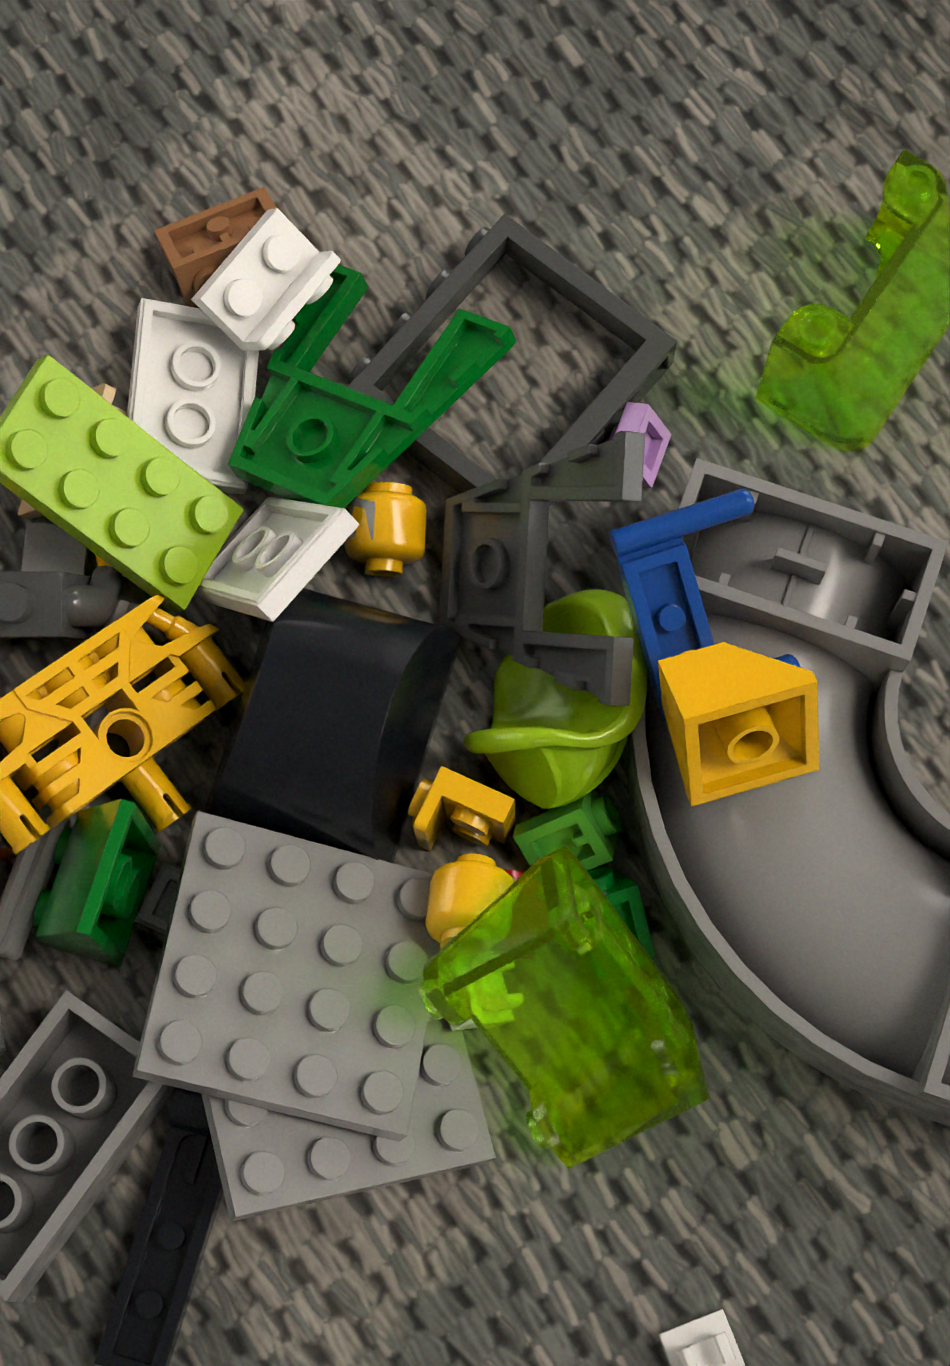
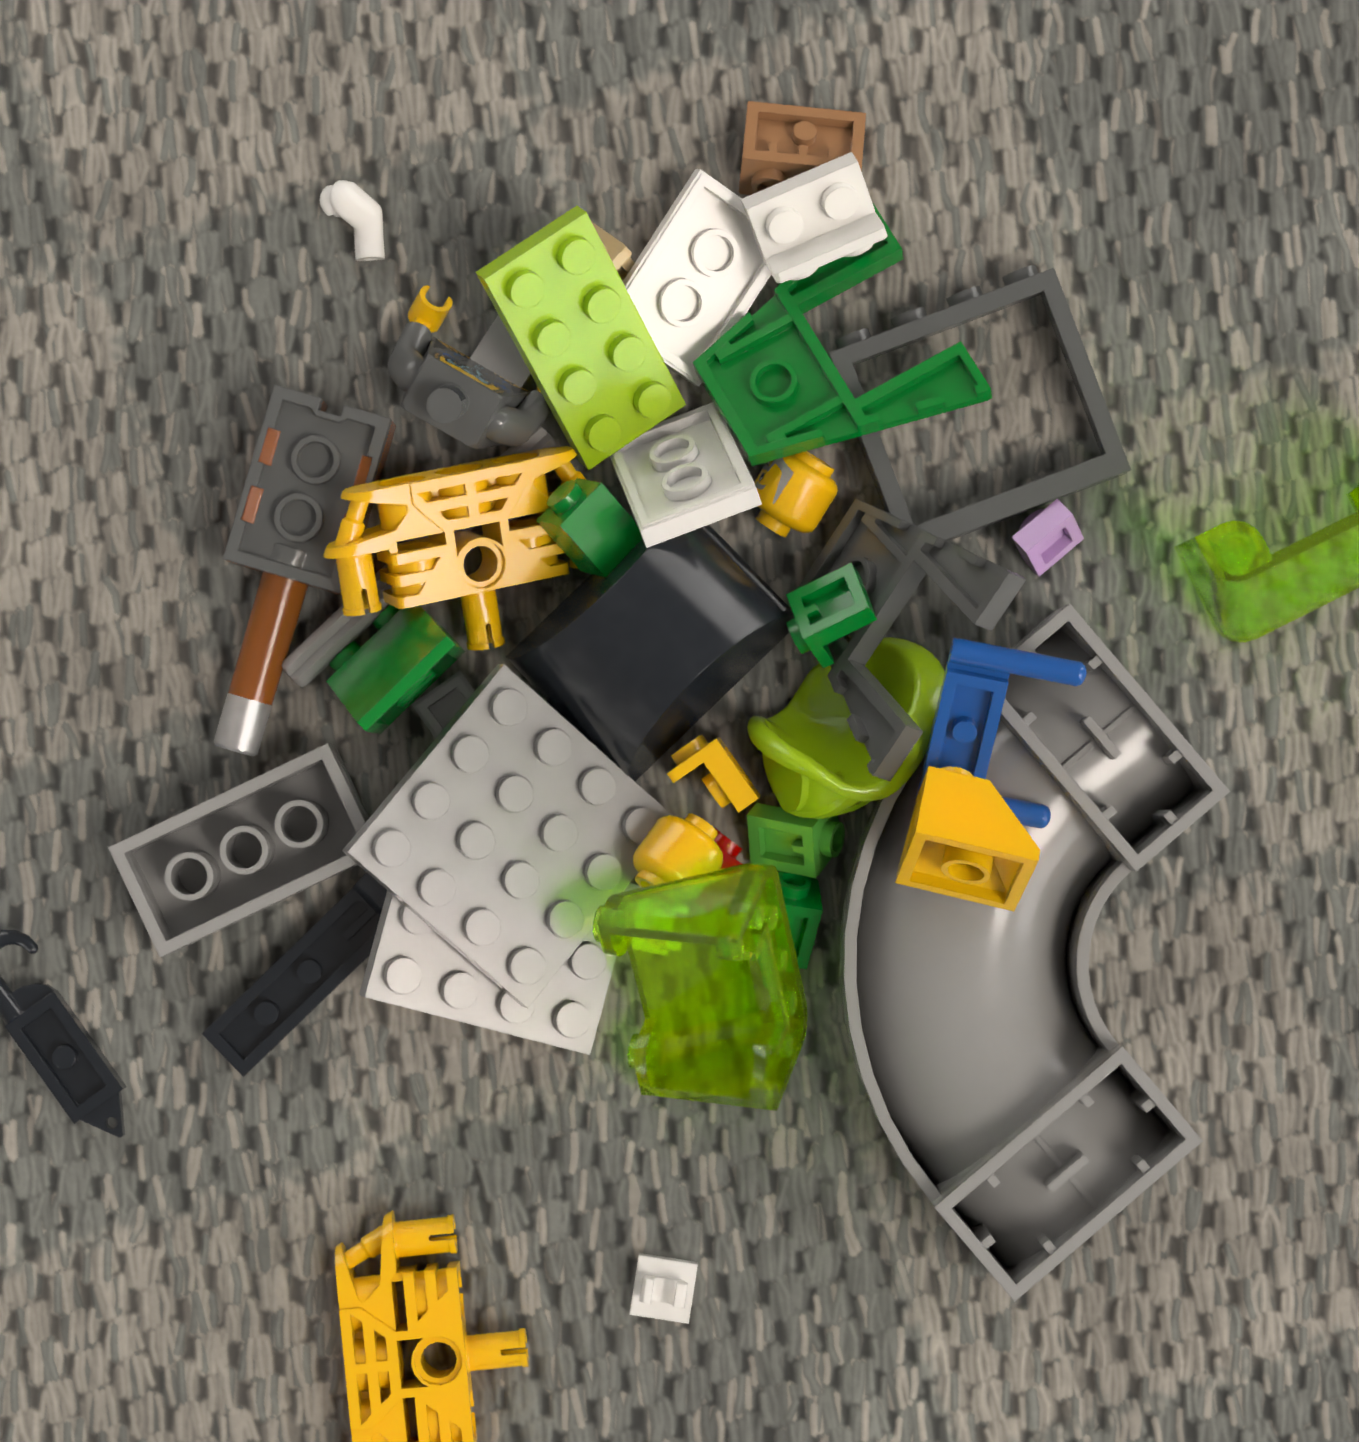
camera: 25 degrees right, 15 degrees up
(211, 646) = (590, 526): none -> green brick
(478, 596) = (828, 611): none -> green bracket

